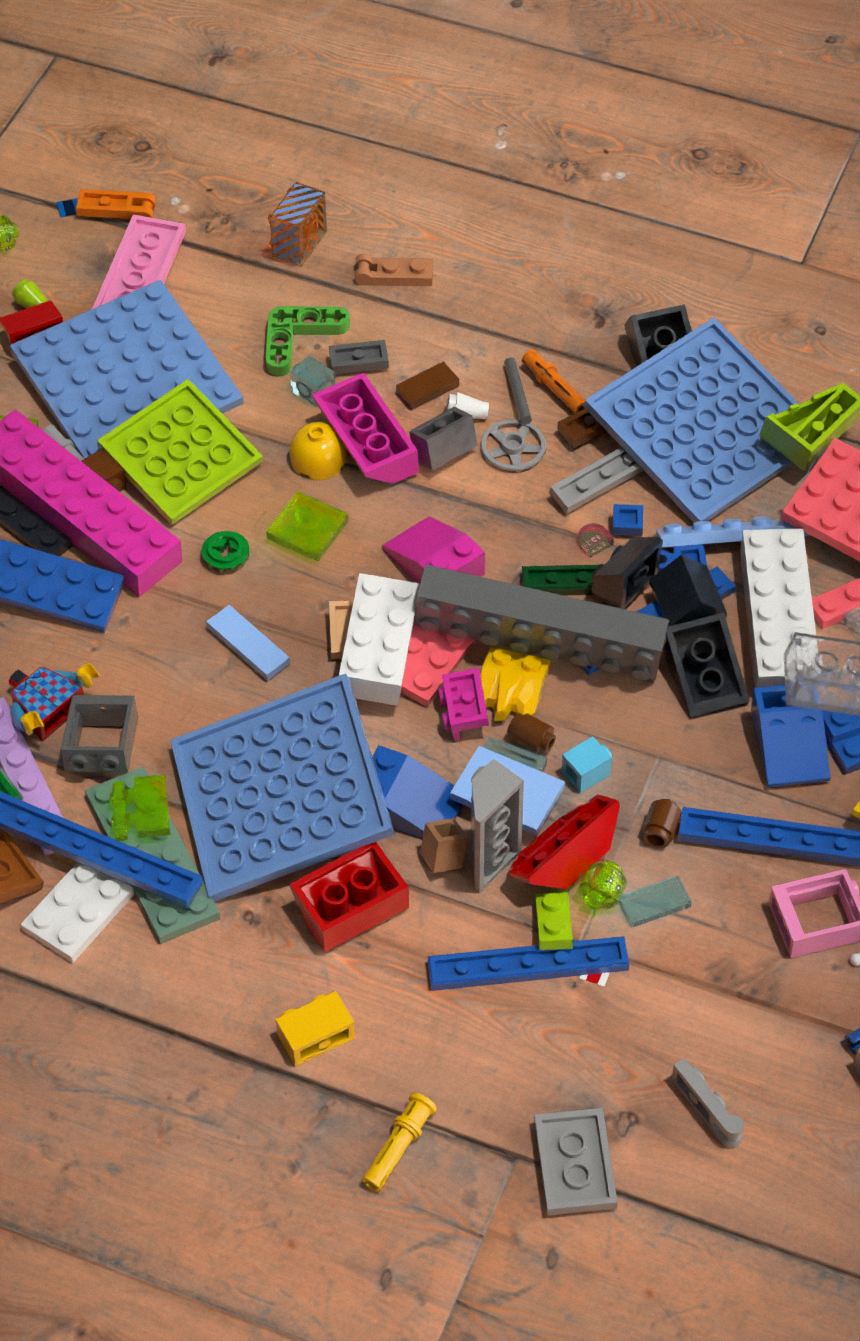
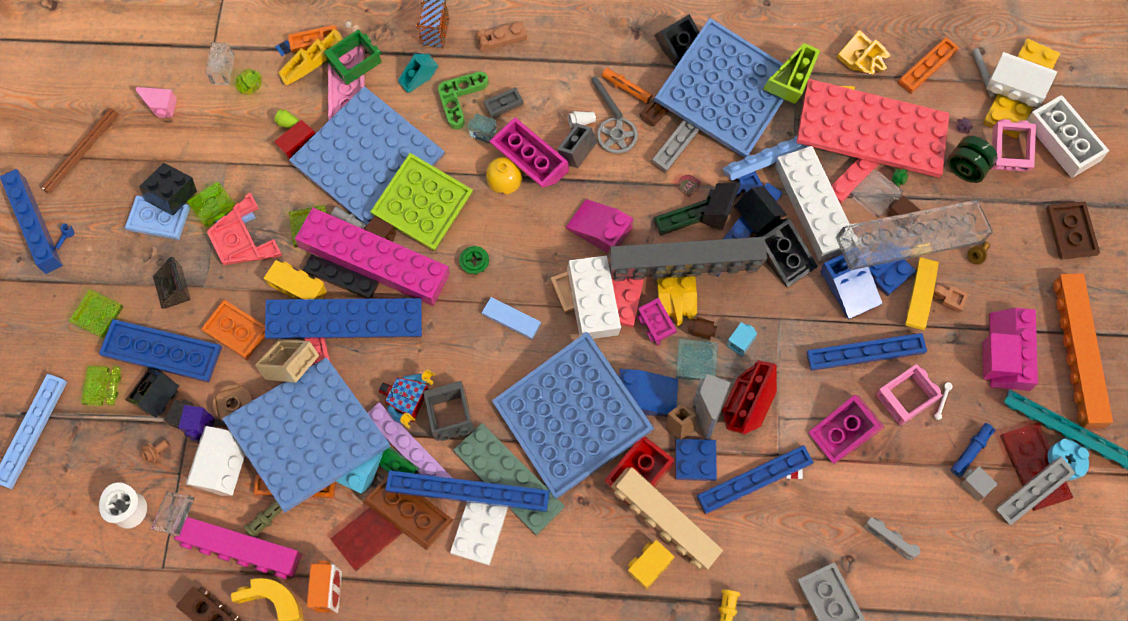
camera: 15 degrees left, 15 degrees up
(95, 229) = (306, 61): none -> yellow slope
(151, 807) = (500, 452): clear neon green plate -> none
(156, 221) = (344, 46): none -> green window
(248, 283) = (417, 72): none -> teal slope
(307, 526) = (517, 228): clear neon green plate -> none
(362, 962) = (666, 518): none -> tan brick
(427, 385) = (551, 109): reddish brown tile -> none
(447, 910) = (696, 460): none -> blue plate
(539, 792) = (694, 366): light blue tile -> none
(554, 921) = (761, 448): lime plate -> none
(603, 884) = (781, 417): clear neon green head -> none
(628, 520) = (704, 167): blue plate -> none
(654, 901) = (811, 415): clear light blue tile -> none
(661, 823) = (798, 364): reddish brown brick -> none
(700, 931) = (846, 429): none -> dark pink slope

